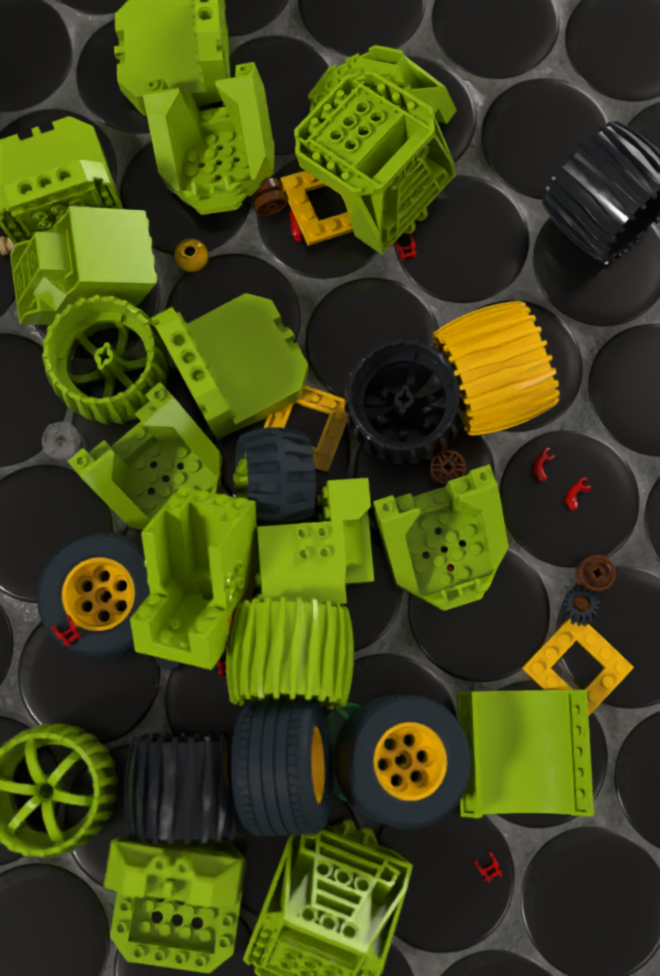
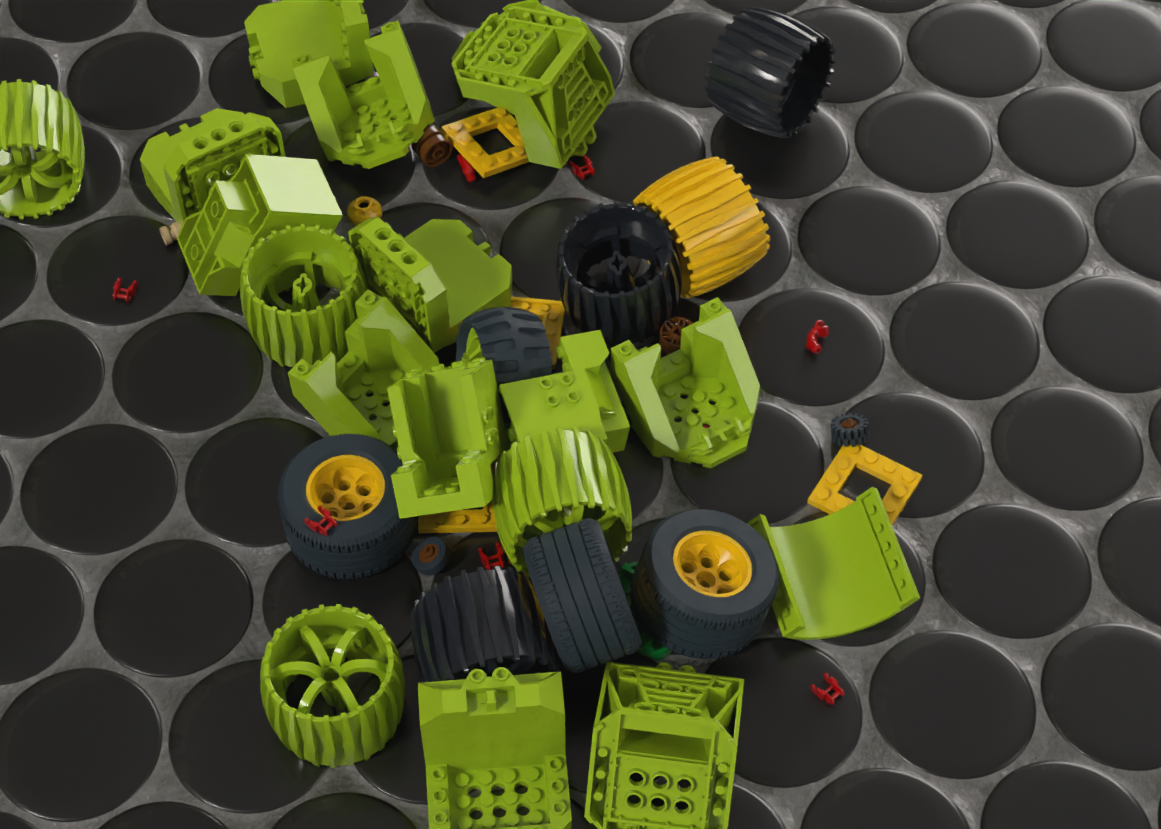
camera: 15 degrees left, 25 degrees down
(55, 435) = (268, 390): clear brick -> none
(538, 469) = (771, 325): red piece -> none
(602, 567) = (856, 396): reddish brown wheel -> none

